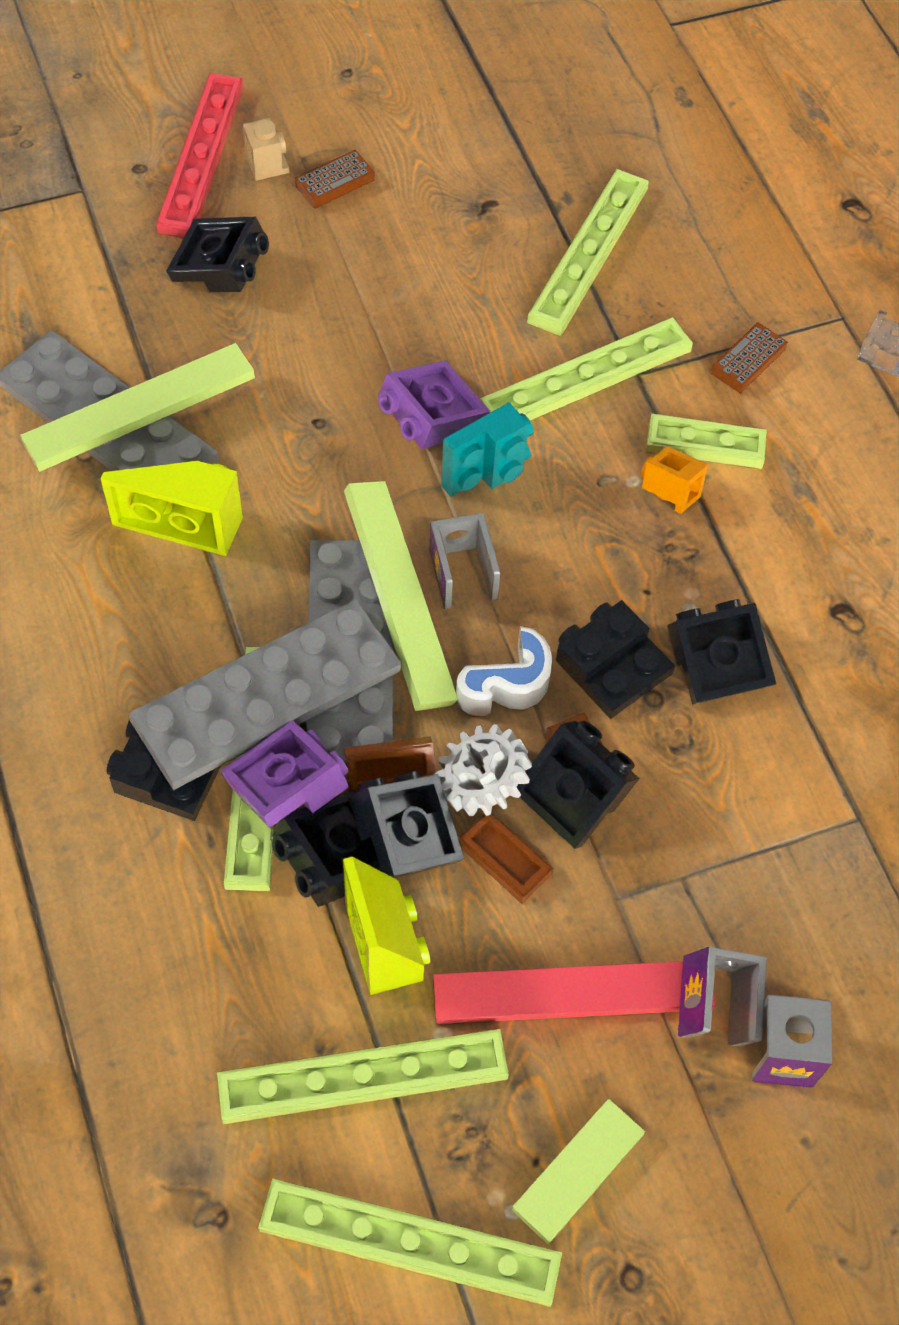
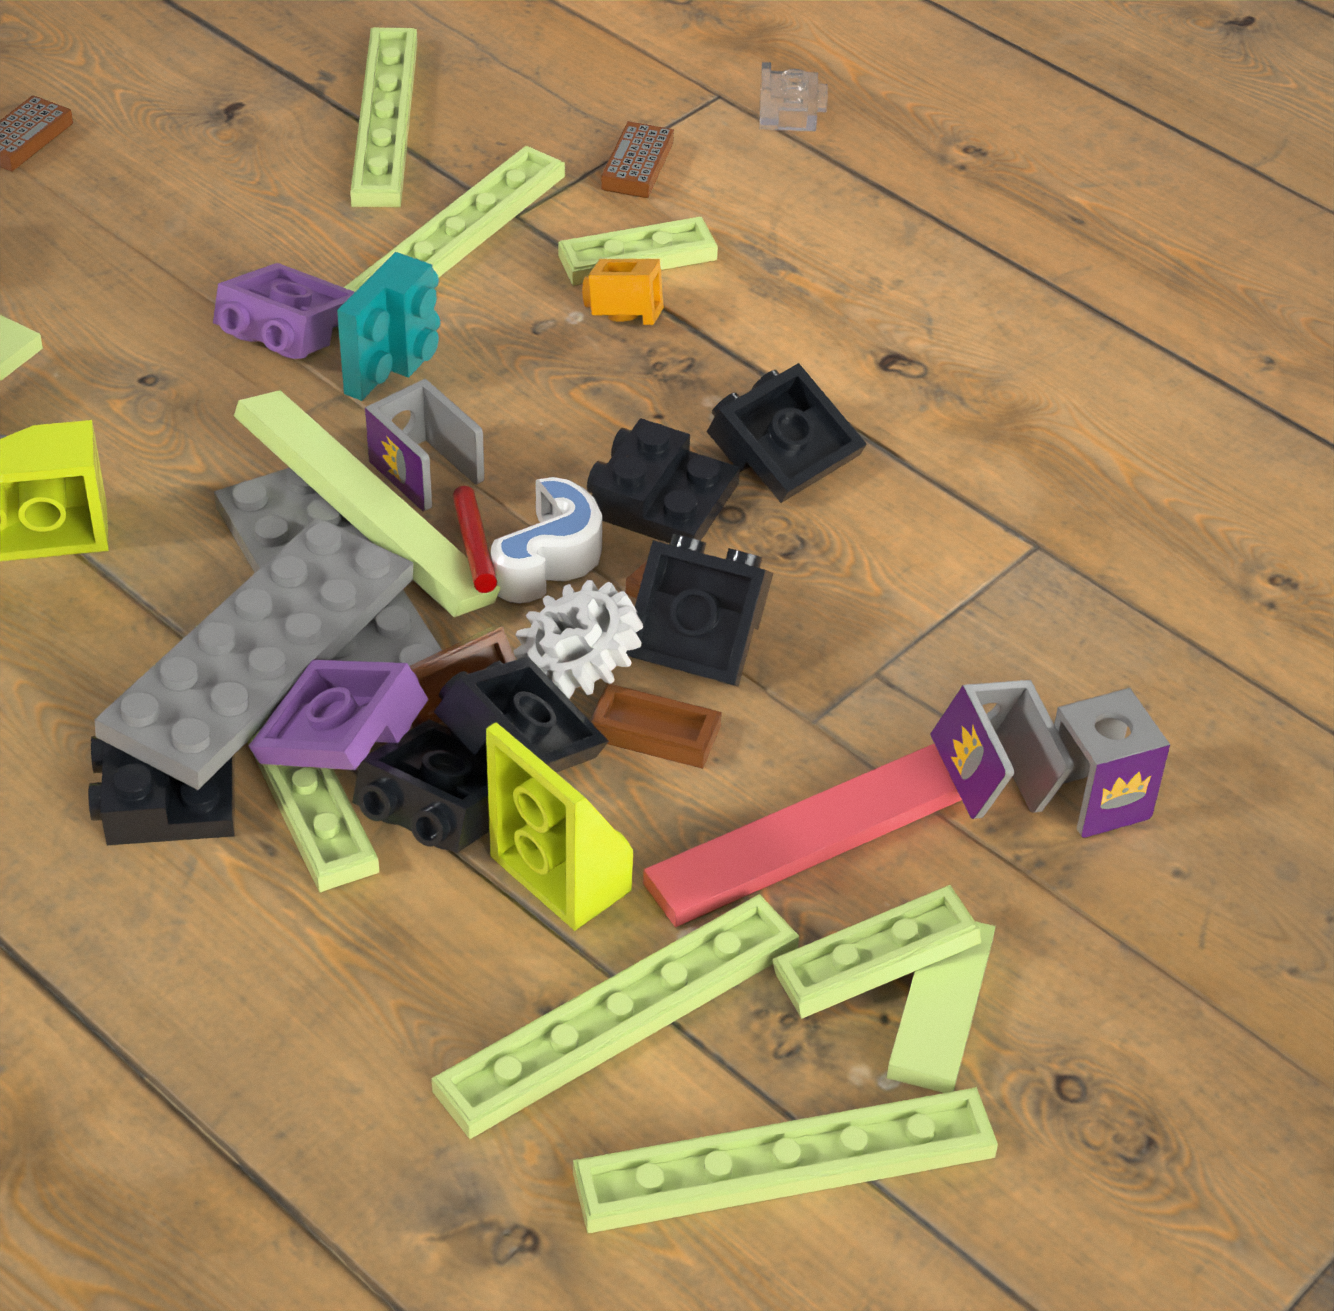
camera: 25 degrees left, 15 degrees down
(459, 653) = (474, 539): none -> red bar
(552, 1114) = (876, 951): none -> yellowish green tile

